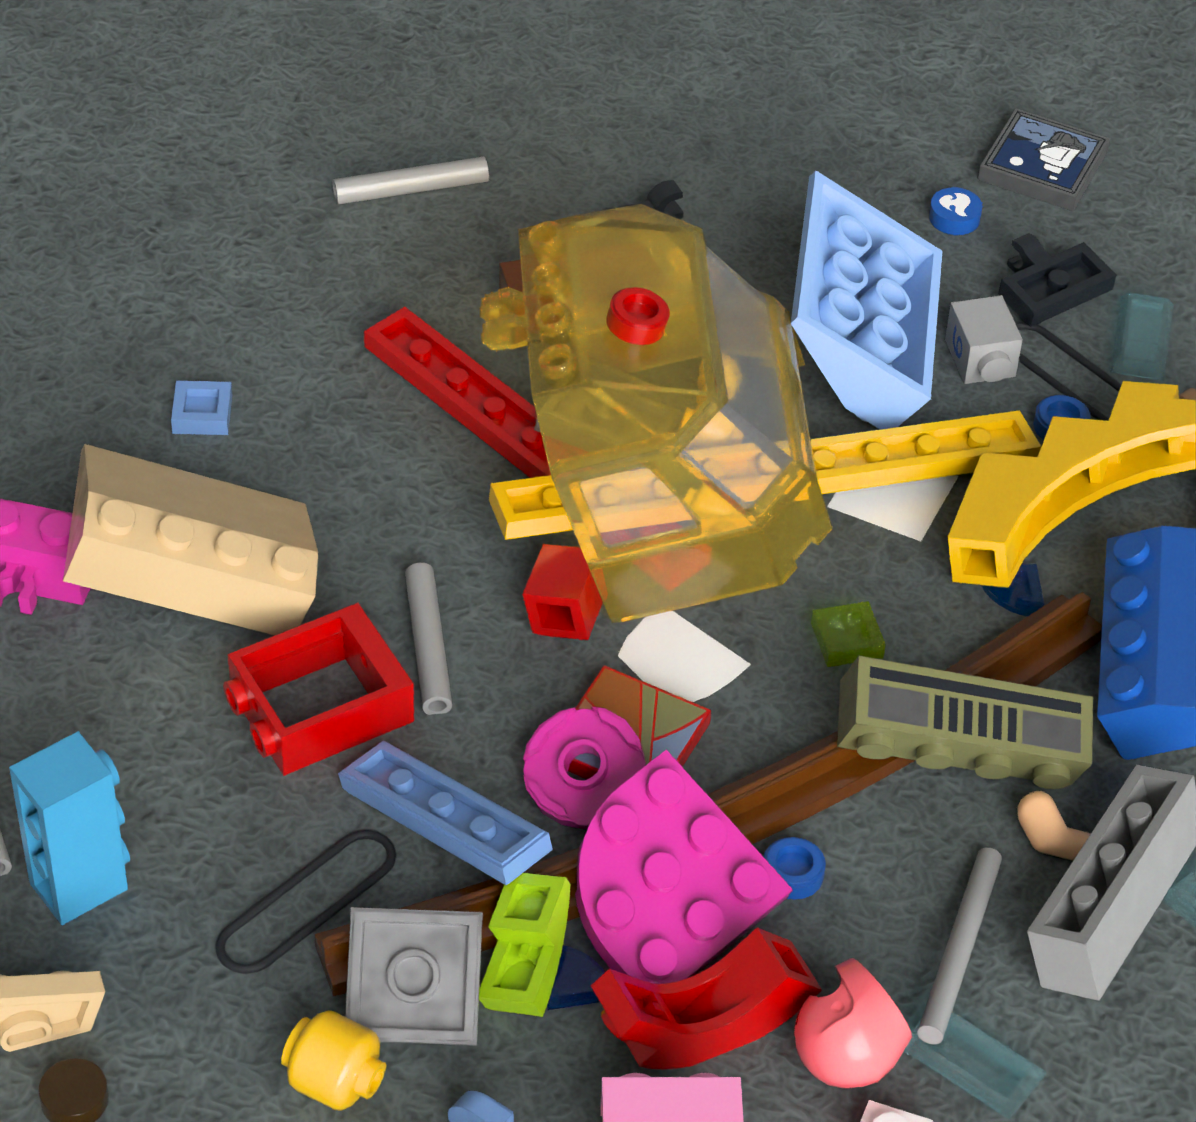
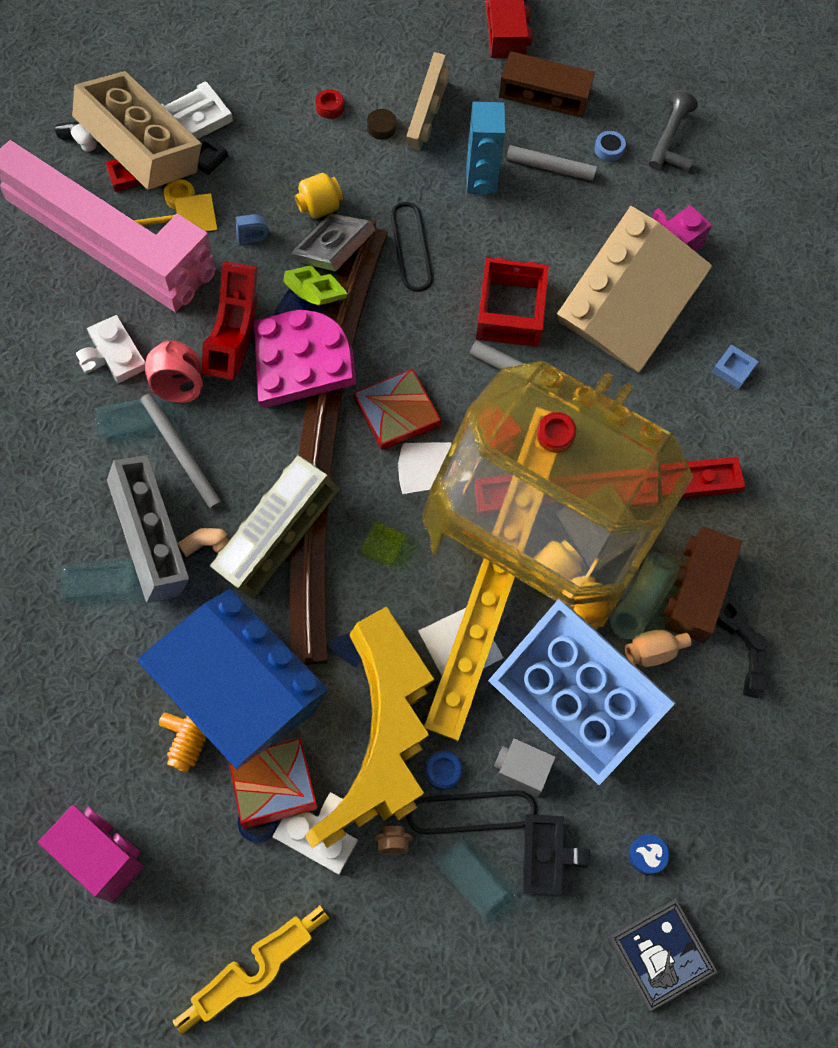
camera: 125 degrees right, 20 degrees up
(446, 812) = (403, 299): medium blue tile -> none
(559, 742) = (389, 384): dark pink tile -> none
(798, 864) = (276, 423): blue tile -> none

